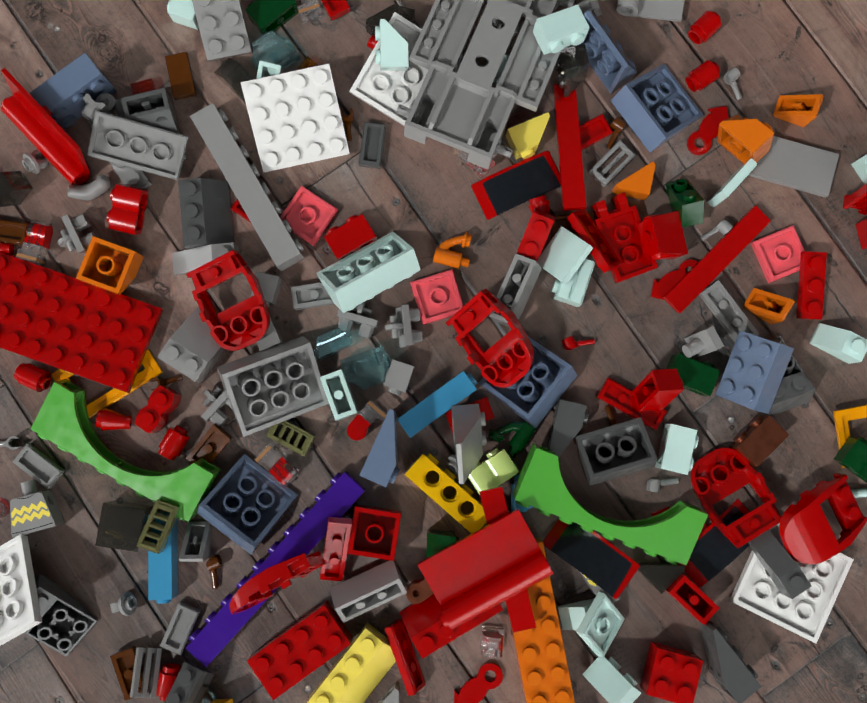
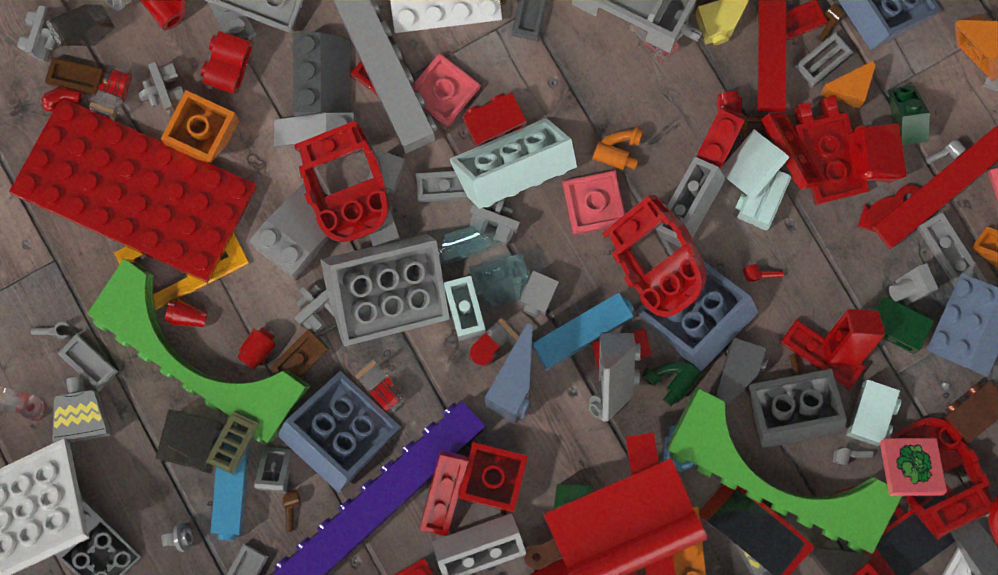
camera: 10 degrees right, 5 degrees down
(33, 377) = (92, 253): red brick -> none
(90, 191) = (183, 36): light grey arm -> none
(156, 414) = (237, 311): red brick -> none
(163, 382) = (248, 275): reddish brown hand -> none
(261, 586) = (370, 513): red slope -> none
(306, 445) = (419, 364): olive slope -> none
(401, 326) = (547, 233): light grey hips -> none
(417, 474) = (551, 415): yellow brick -> none
(493, 470) = (647, 416): yellowish green brick -> none
(517, 184) = (704, 75): black sticker -> none
(707, 130) = (944, 30): red brick -> none
(713, 492) = (913, 467): none -> coral tile
(732, 183) = (967, 96): light aqua tile -> none

